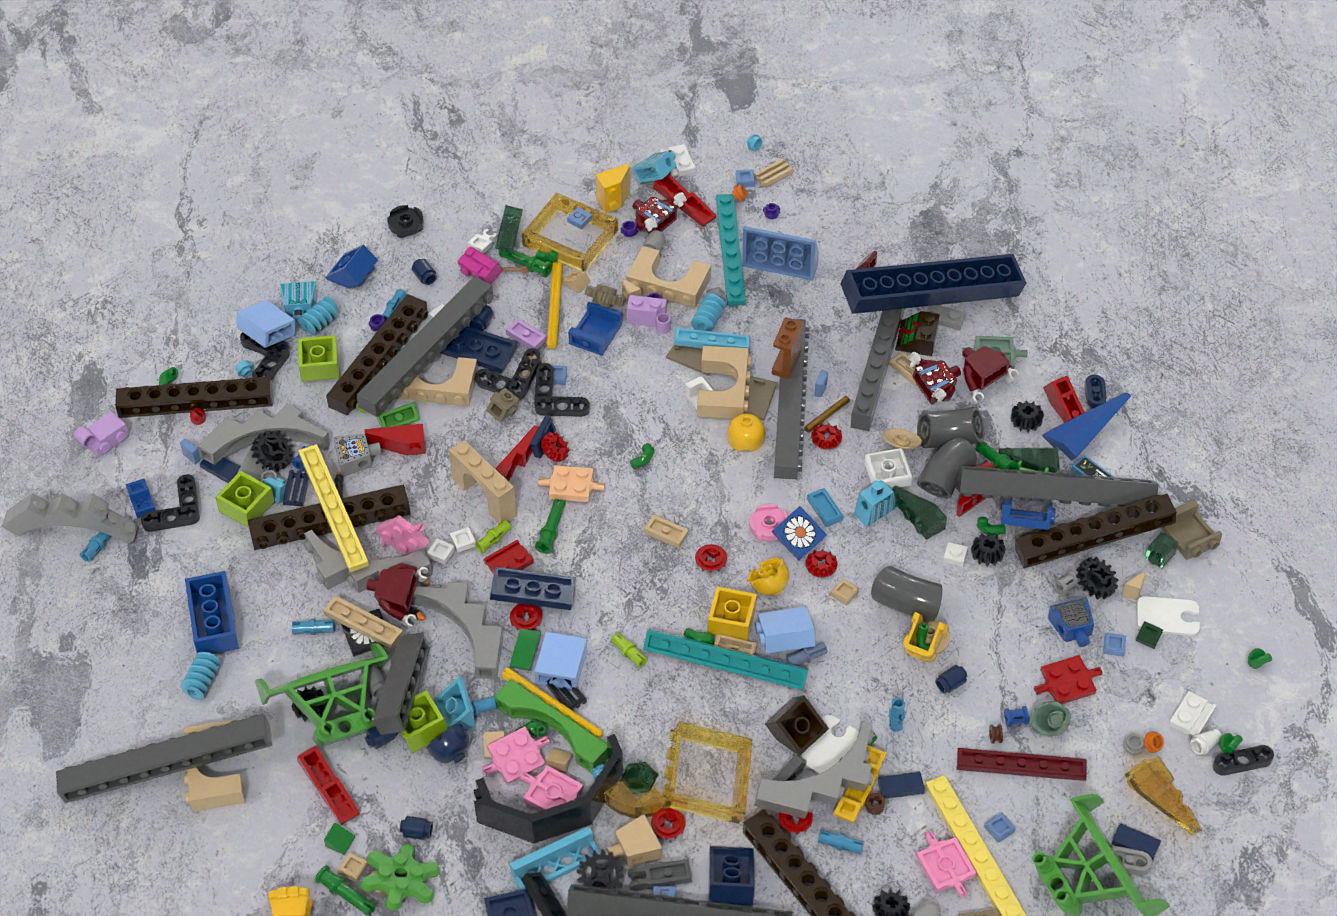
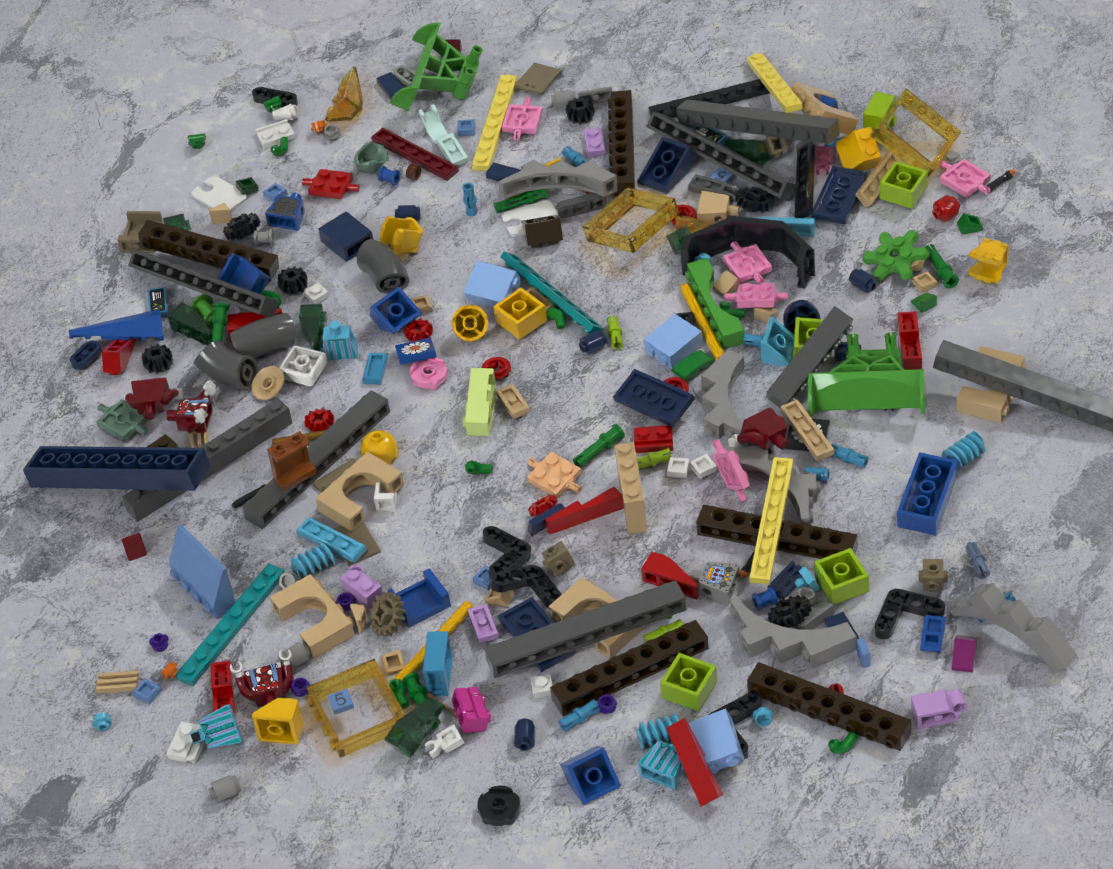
camera: 140 degrees left, 5 degrees down
(106, 492) = (964, 653): none -> magenta slope
(134, 579) = (977, 560): none -> sand blue axle
(164, 539) = (933, 575): none -> dark tan brick
(269, 294) = (693, 762): none -> red slope
(329, 593) = (821, 473): none -> dark azure pin
(529, 278) = (438, 663): none -> dark azure window
(617, 141) = (224, 788): none -> light grey brick
(639, 624) = (593, 342): none -> dark blue brick
(689, 508) = (480, 402): none -> yellowish green wedge
(817, 348) = (242, 500): none -> black piece
(842, 878) = (594, 142): none -> lavender plate
(854, 558) = (394, 311): none -> blue slope
(987, 622) = (344, 235): none -> dark blue brick
(1001, 790) = (438, 134): none -> light aqua piece
(1164, 698) = (279, 150): none -> green arm

